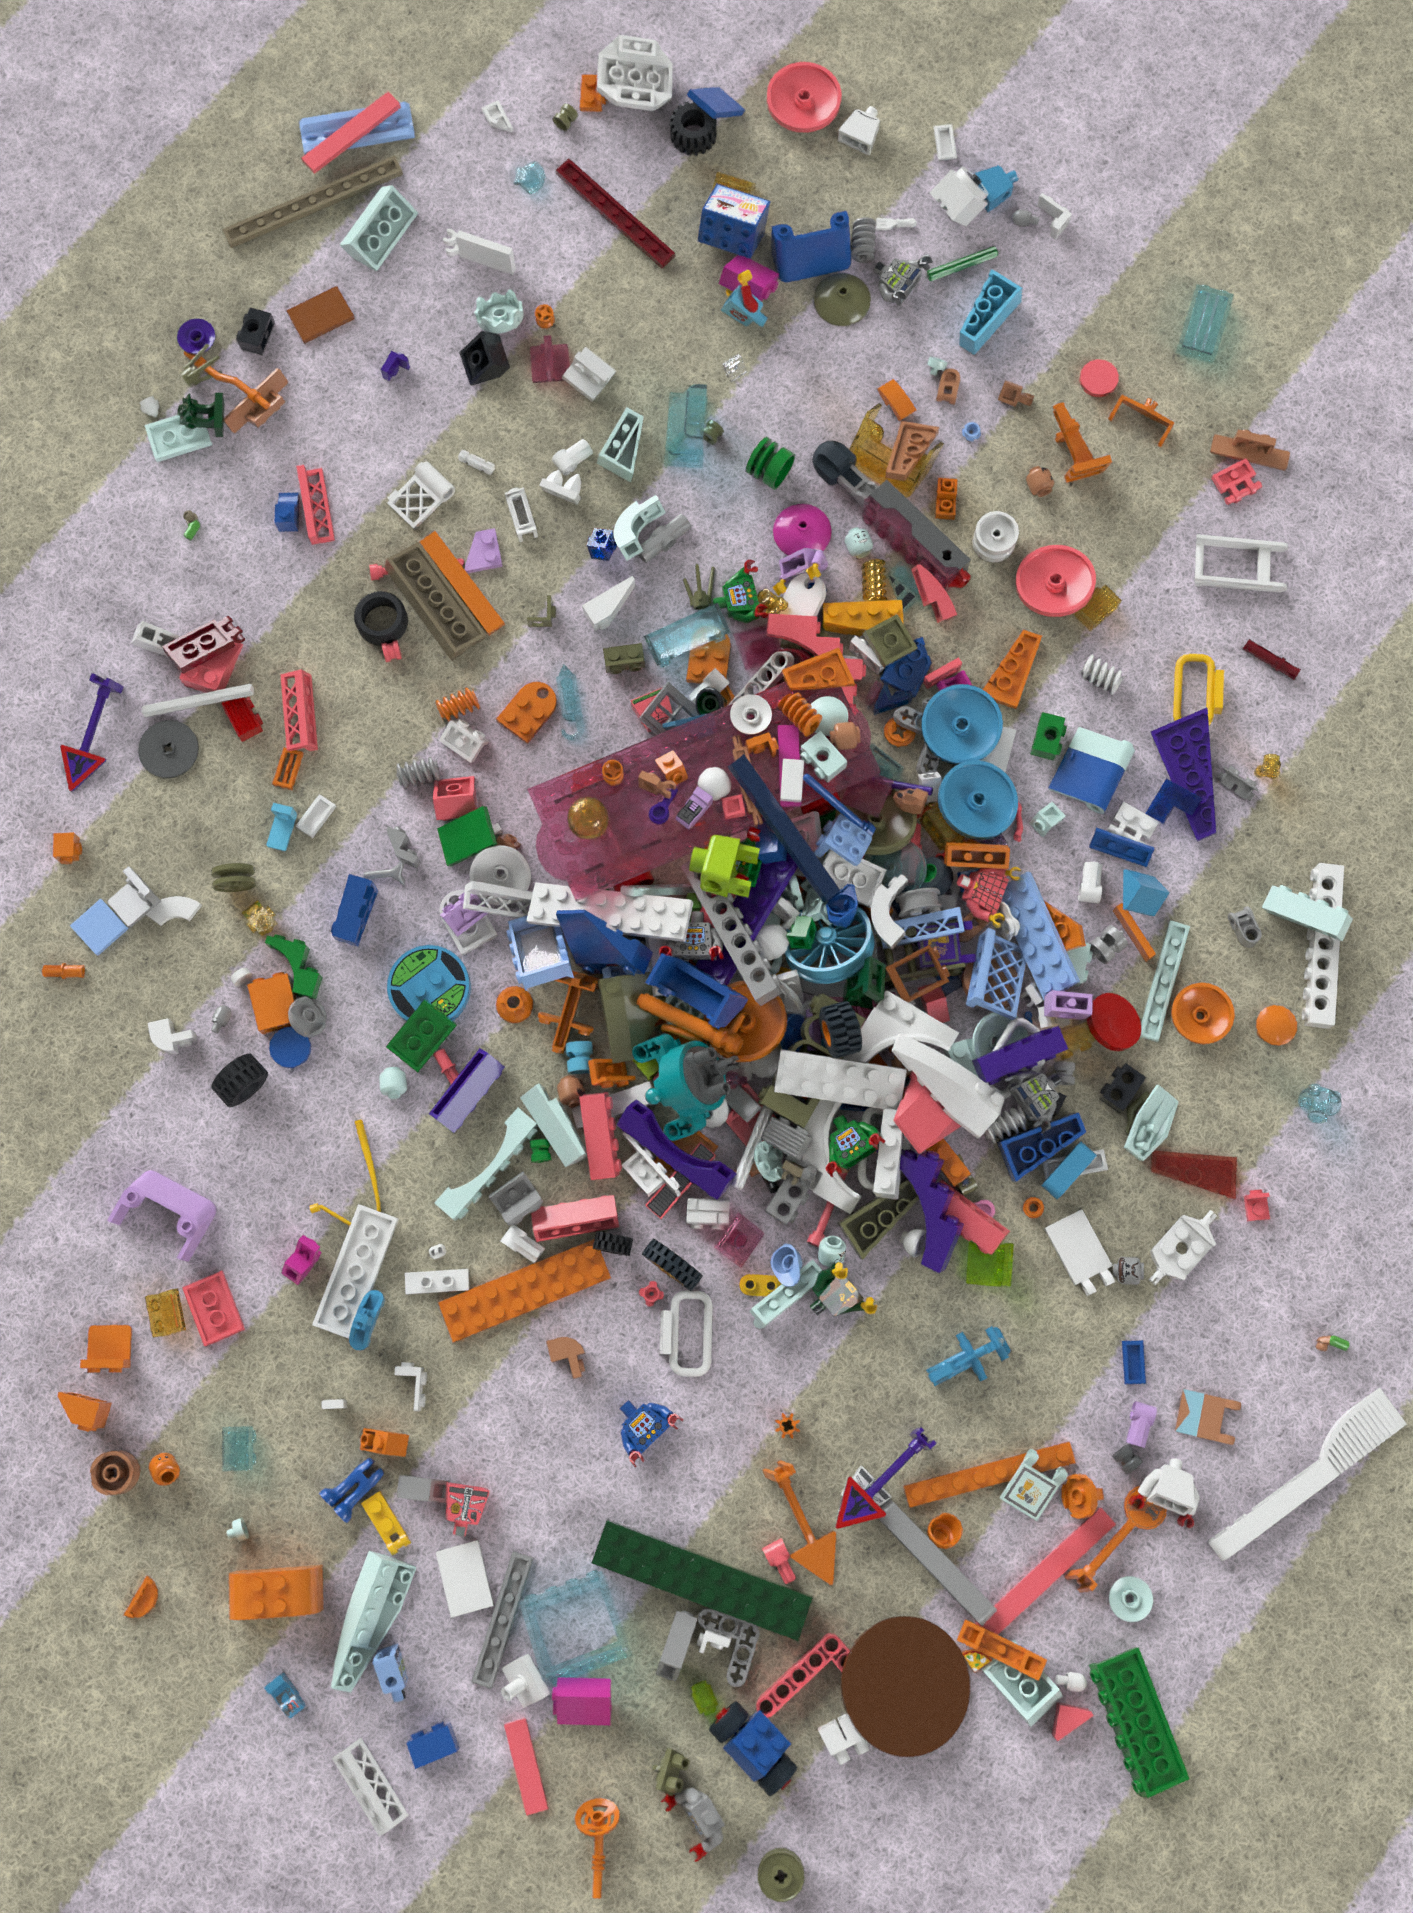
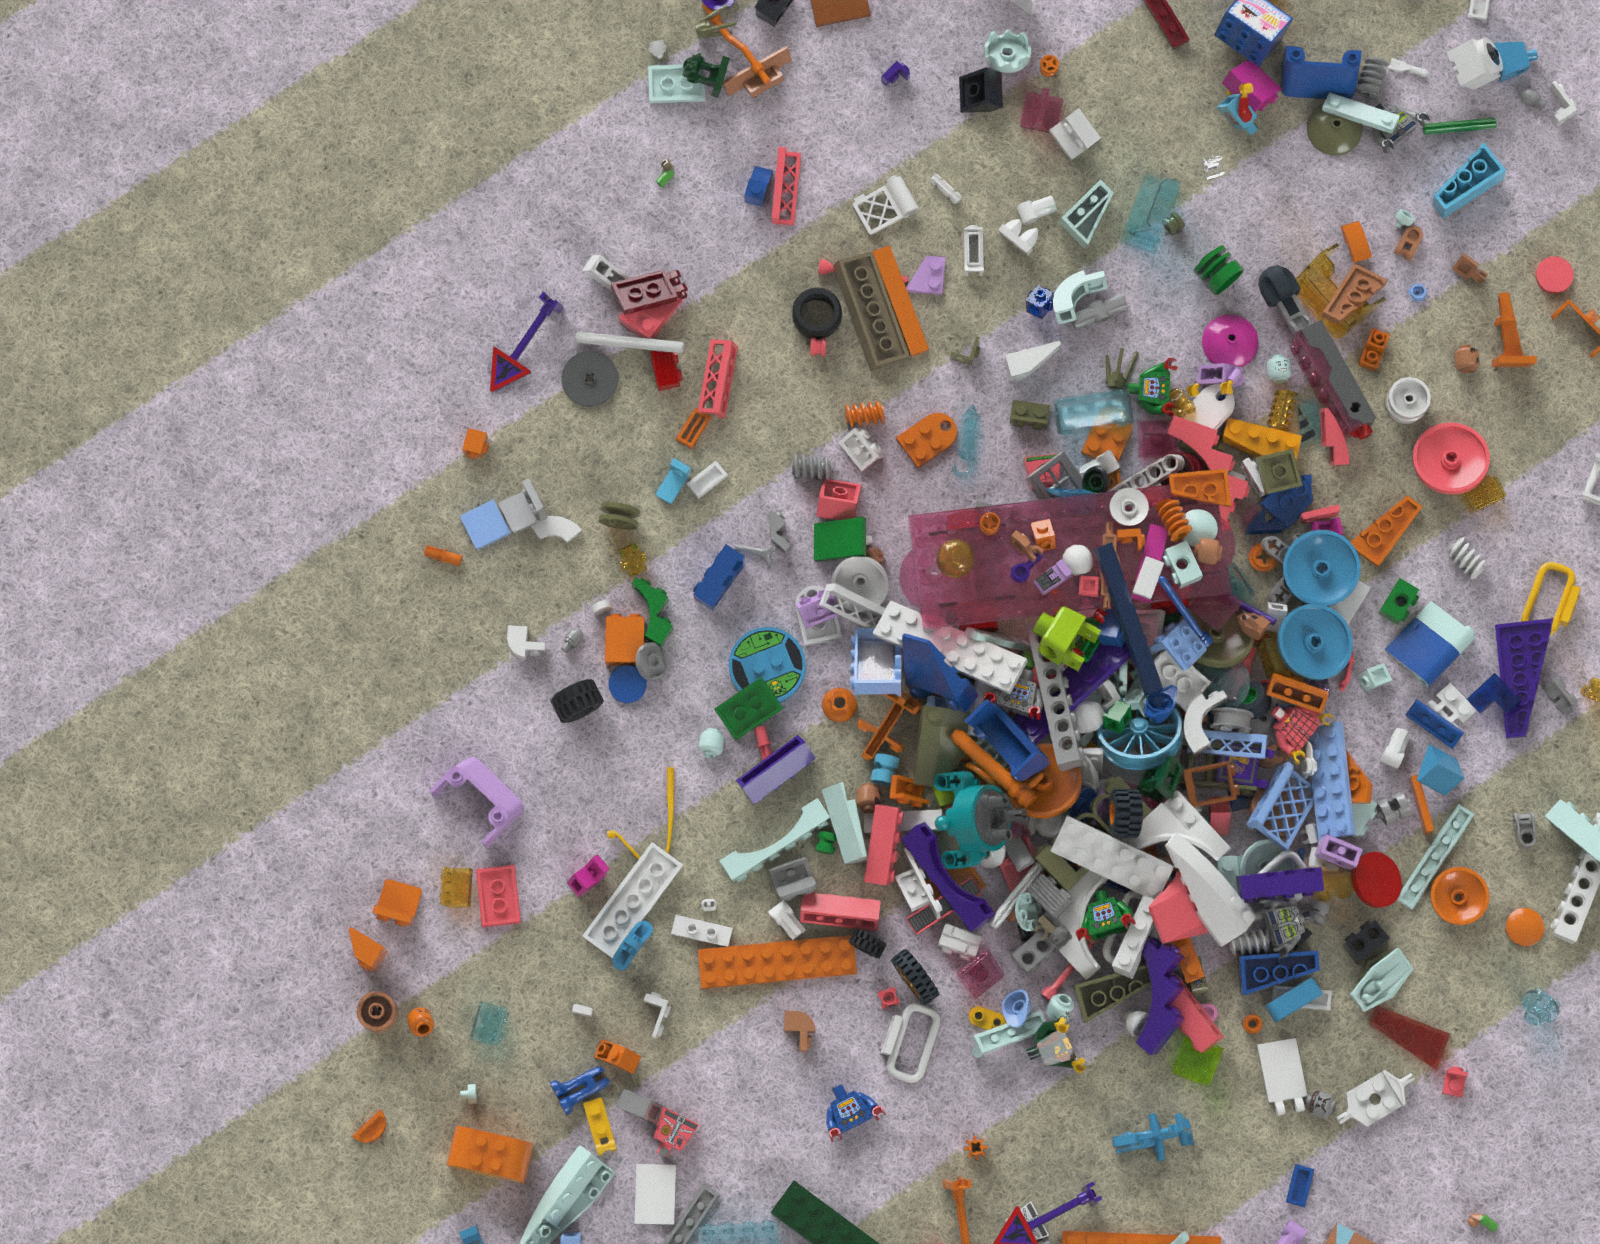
camera: 15 degrees right, 0 degrees up
(863, 274) = (1360, 113): none -> light aqua plate

